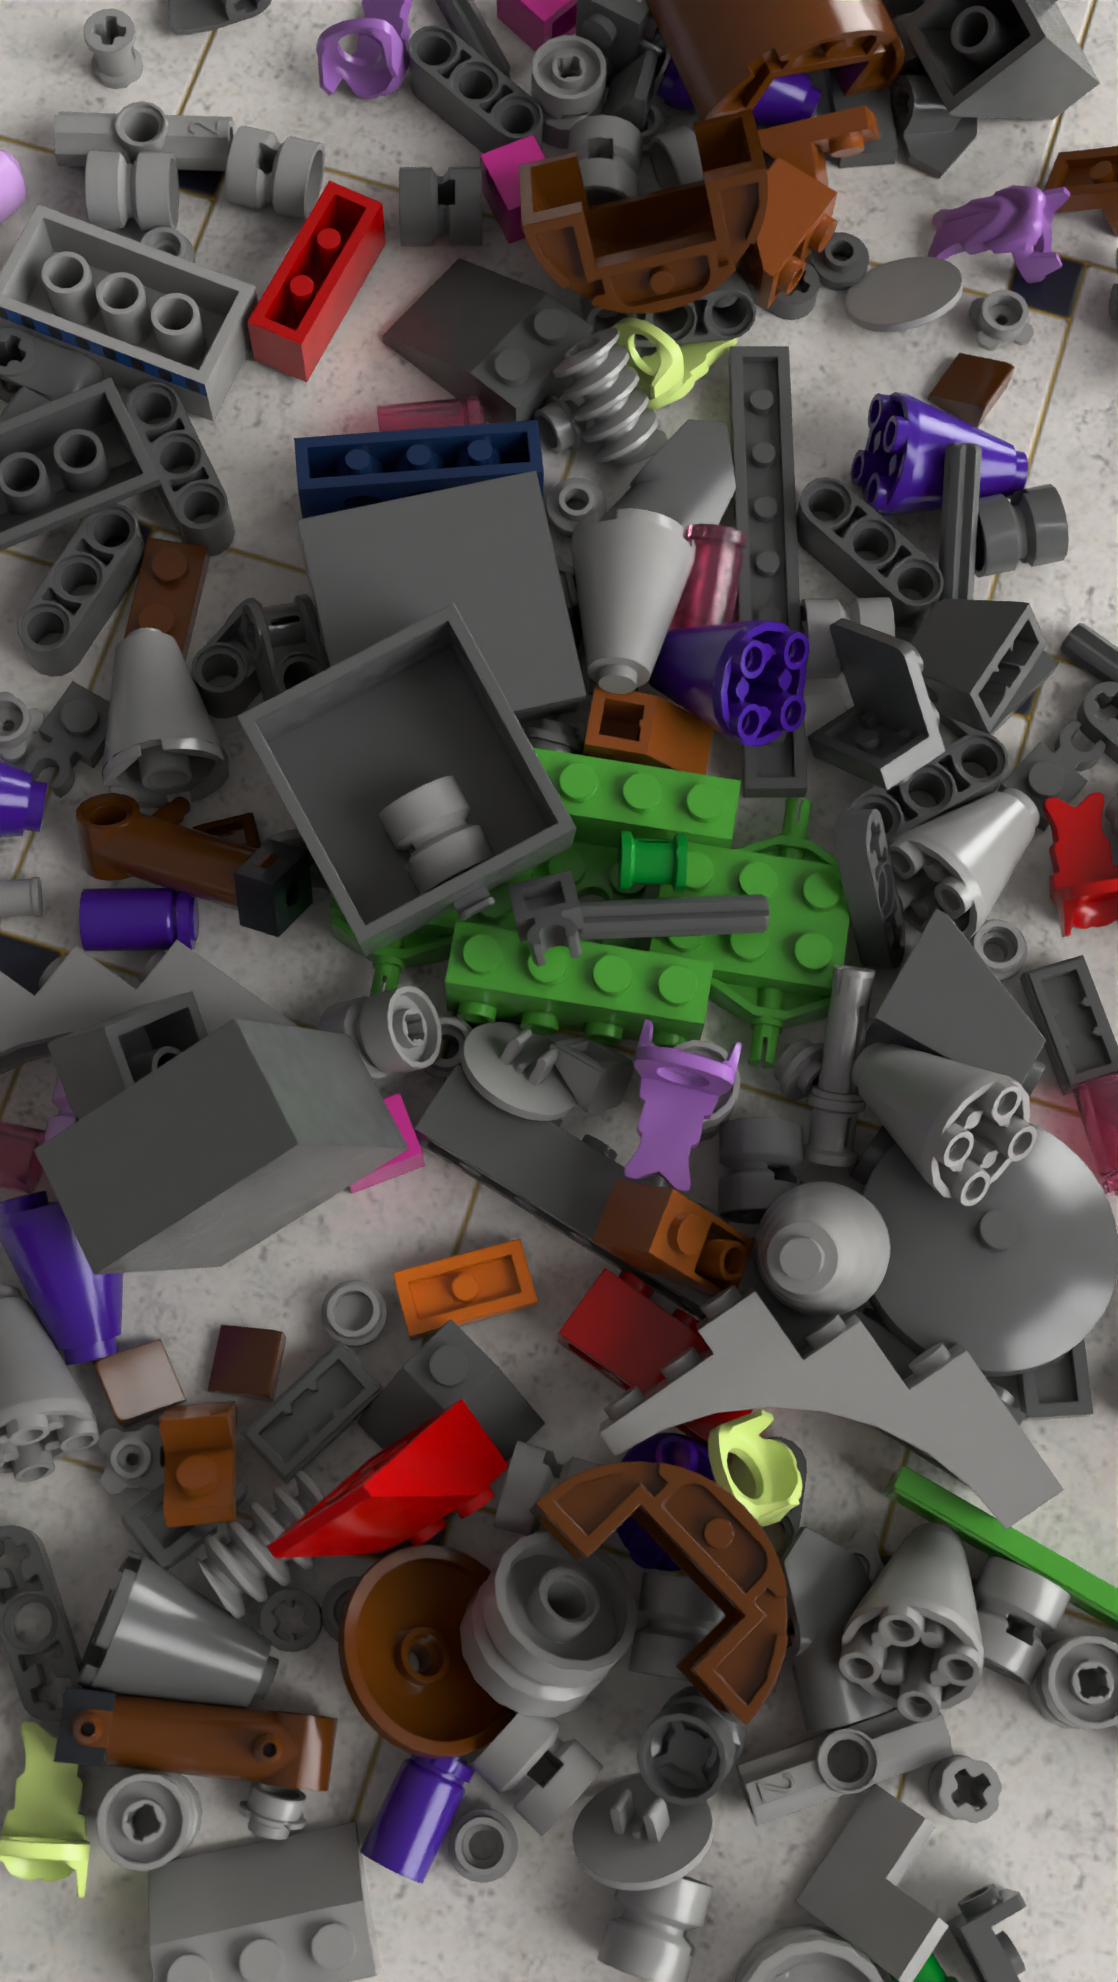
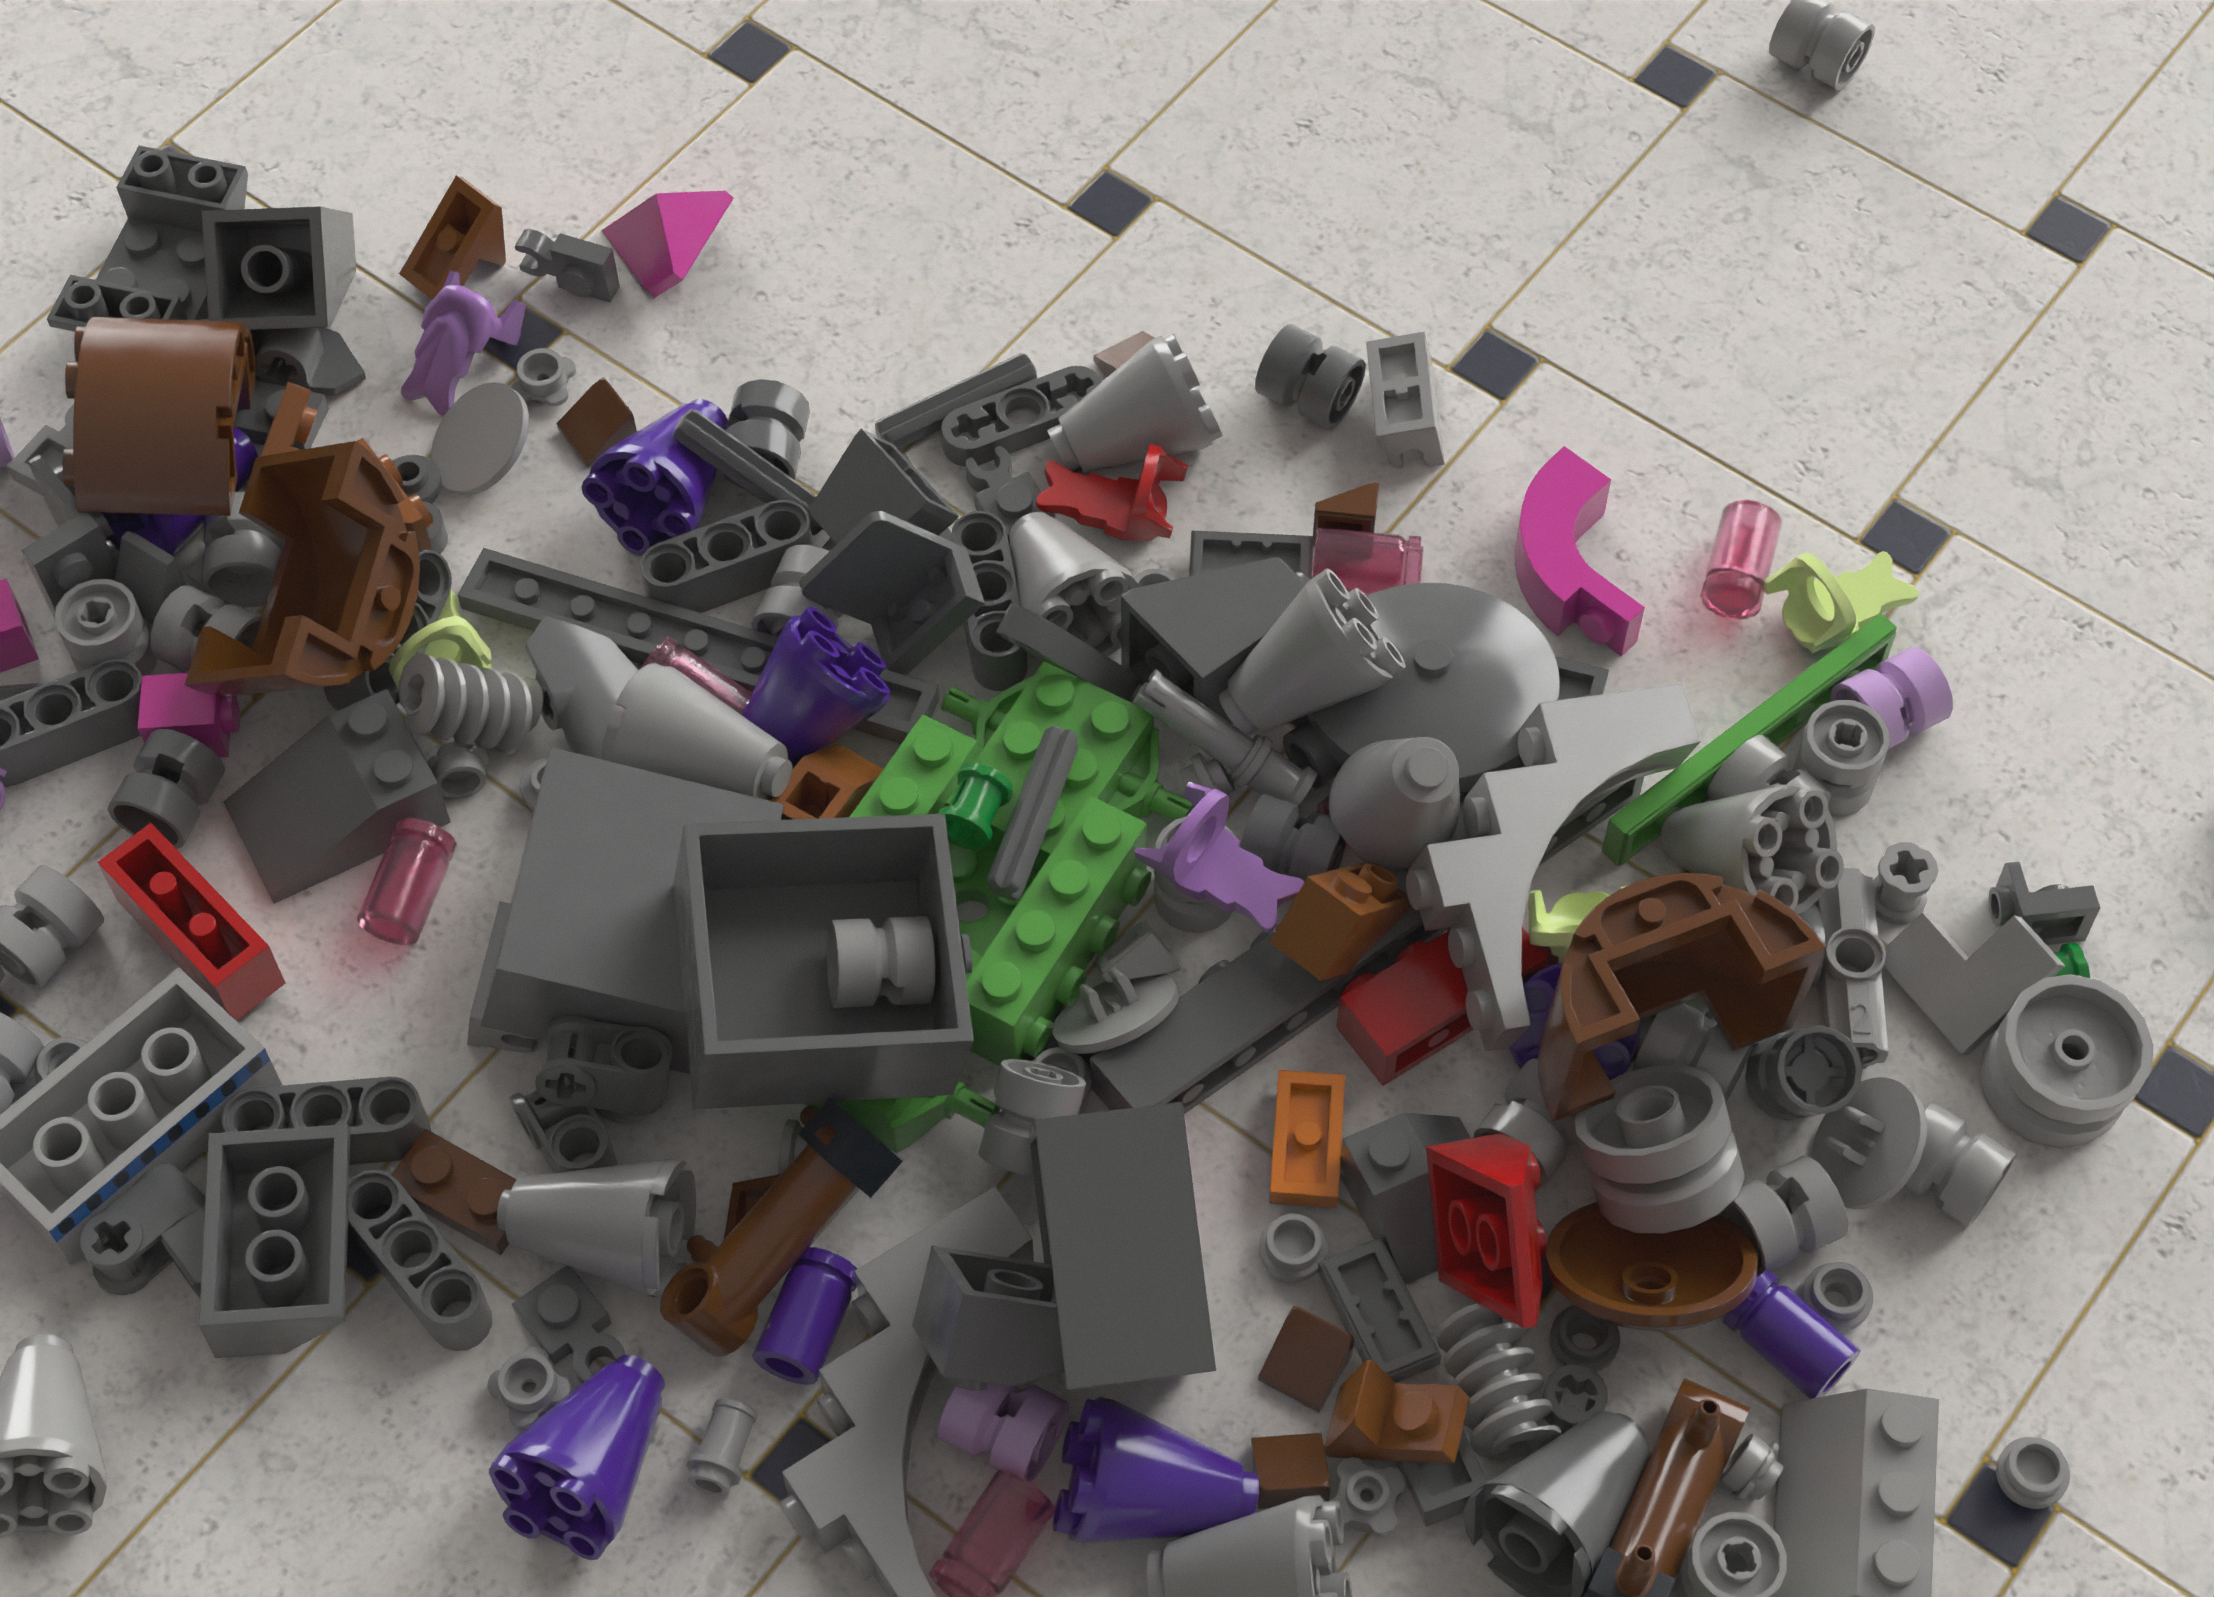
camera: 65 degrees left, 15 degrees down
(392, 465) = (454, 901): dark blue brick -> none
(547, 914) = (994, 898): dark grey plate -> none

